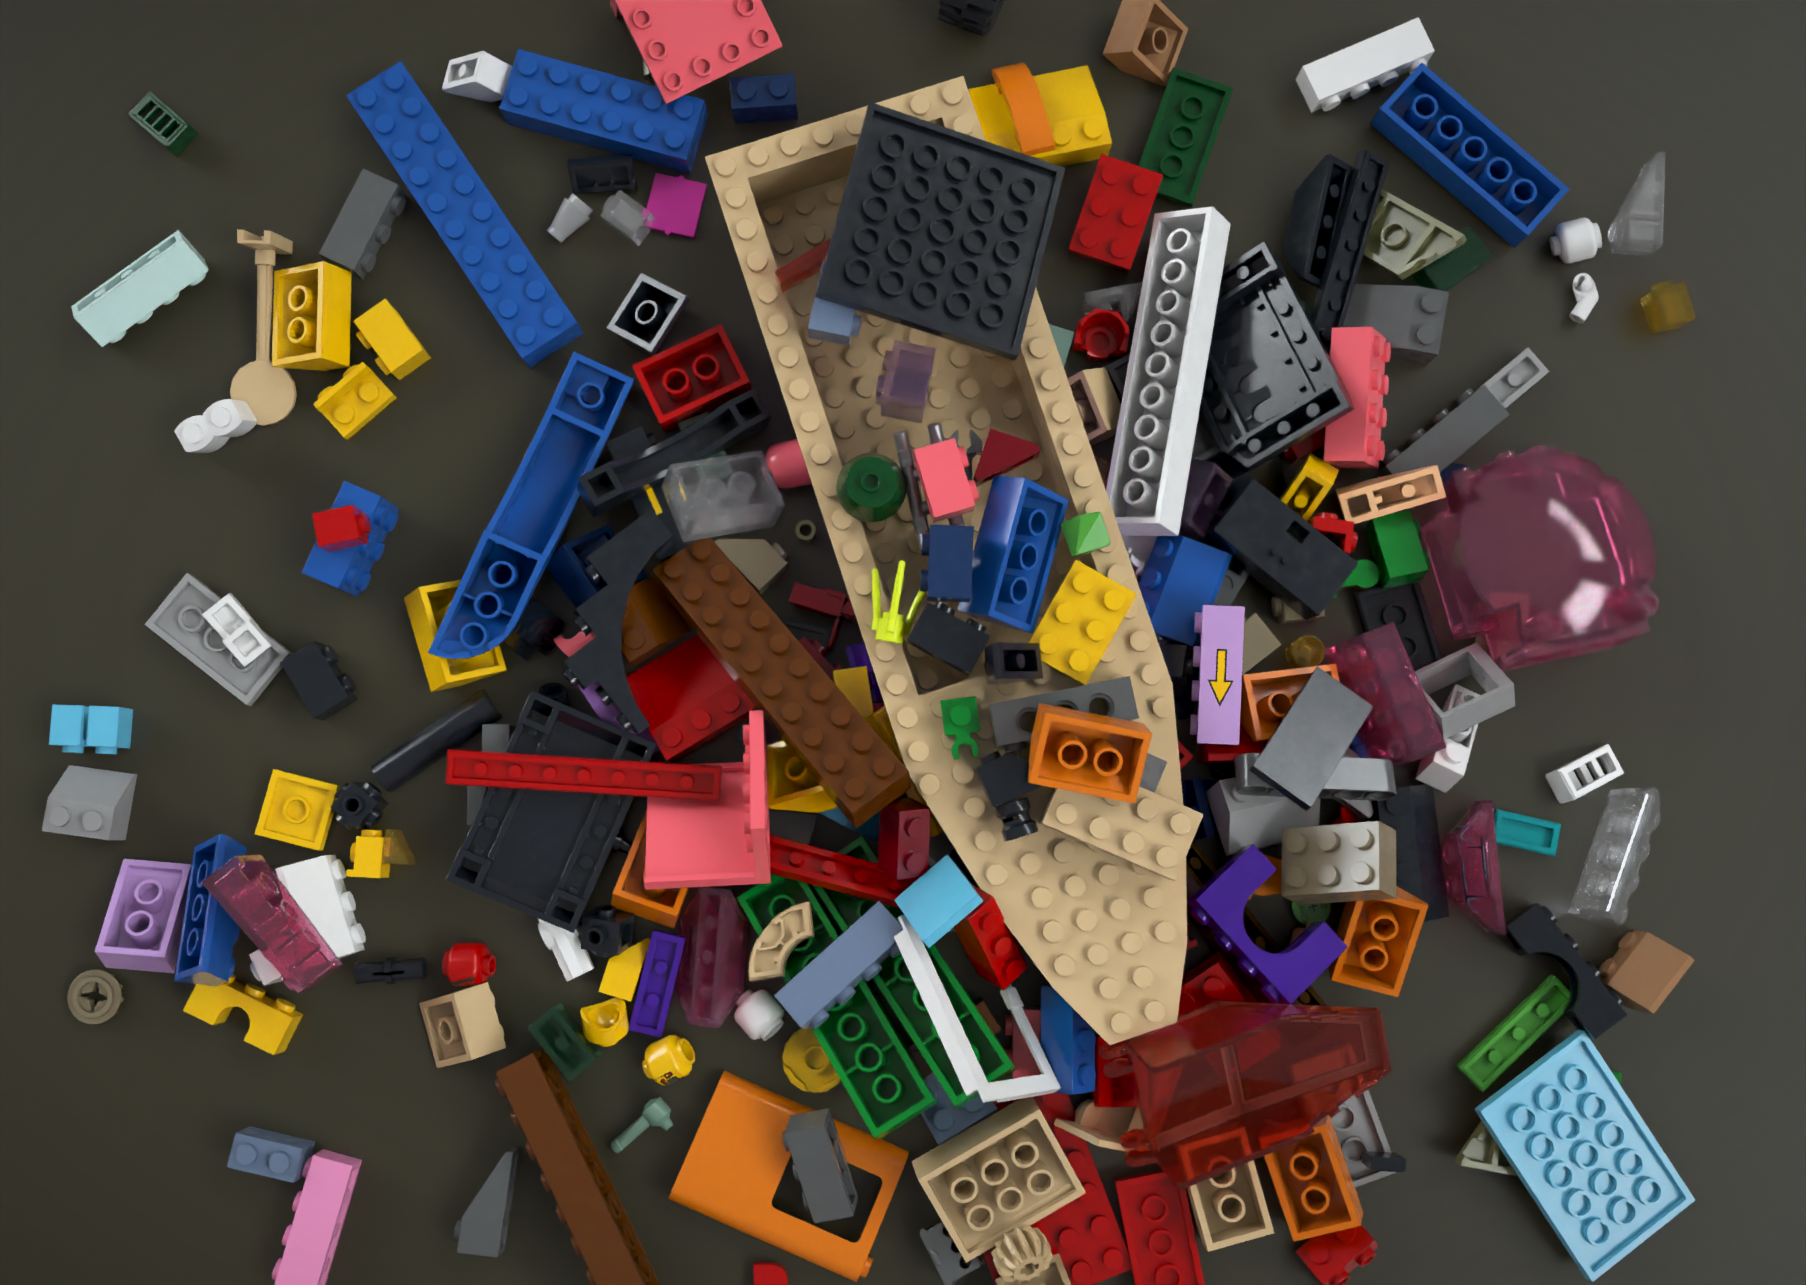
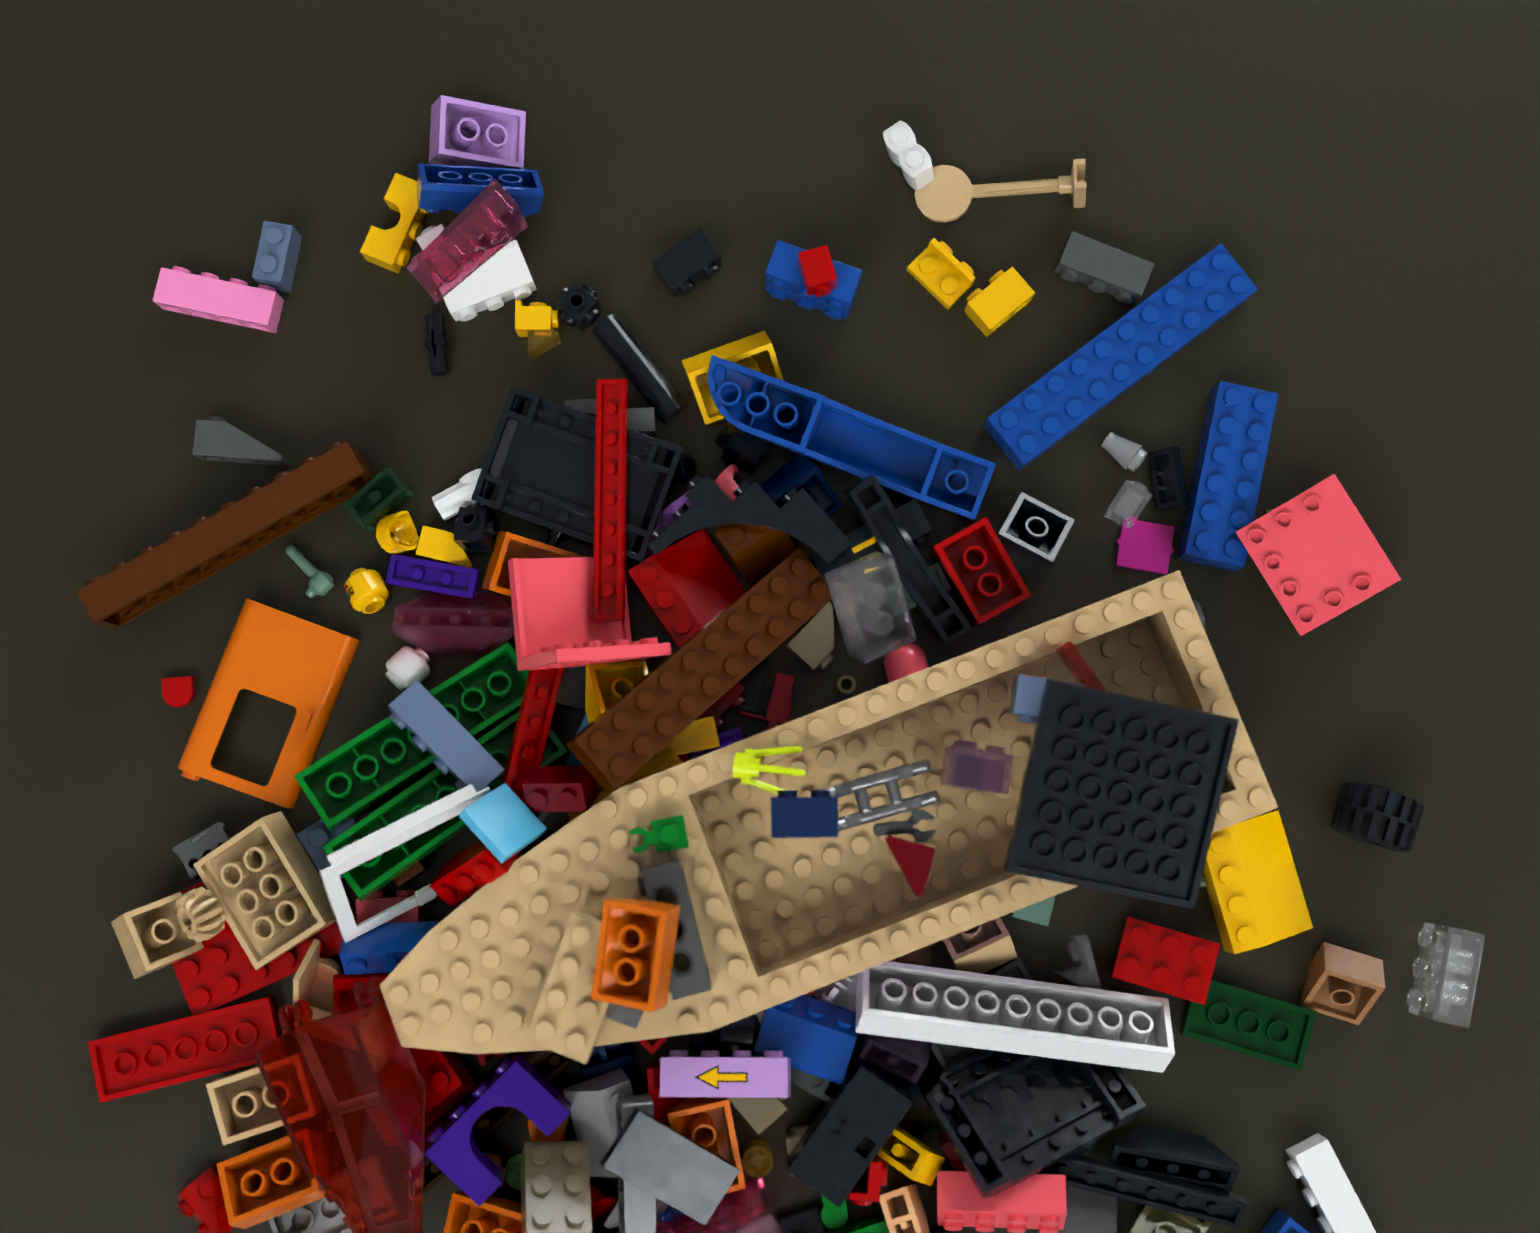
camera: 90 degrees right, 0 degrees up
(84, 1007) = (398, 90): dark tan gear -> none
(90, 726) = (637, 74): medium azure piece -> none
(91, 803) = (571, 80): light grey slope -> none
(140, 289) = (1029, 79): light aqua brick -> none
(178, 139) = (1174, 102): dark green slope -> none
(184, 628) = (720, 174): light grey plate -> none
(237, 629) = (728, 190): white slope -> none
(297, 810) = (573, 254): yellow plate -> none
(312, 317) = (1013, 230): yellow slope -> none
(463, 1025) = (391, 410): tan slope -> none
(468, 964) = (444, 411): red head -> none
(477, 77) = (1250, 358): white slope -> none
(763, 98) = (1252, 622): dark blue brick -> none
(778, 941) = (469, 681): tan tile -> none
(808, 1064) = (364, 712): yellow tile -> none
(820, 1165) = (275, 730): dark grey brick -> none
(871, 487) = (875, 741): dark green cone -> none
(945, 480) = (884, 808): coral brick -> none
(948, 637) = (739, 820): black brick -> none
(1004, 777) = (614, 876): black slope -> none
(1012, 662) = (717, 880): black slope -> none
(1014, 552) = (822, 877): blue slope -> none
(1016, 827) = (577, 890): black wheel -> none
(1025, 108) = (1261, 868): orange slope -> none
(1081, 622) = (761, 941): yellow plate -> none
(1085, 533) = (843, 943): bright green slope -> none
(1101, 335) = (1047, 951): red hair -> none

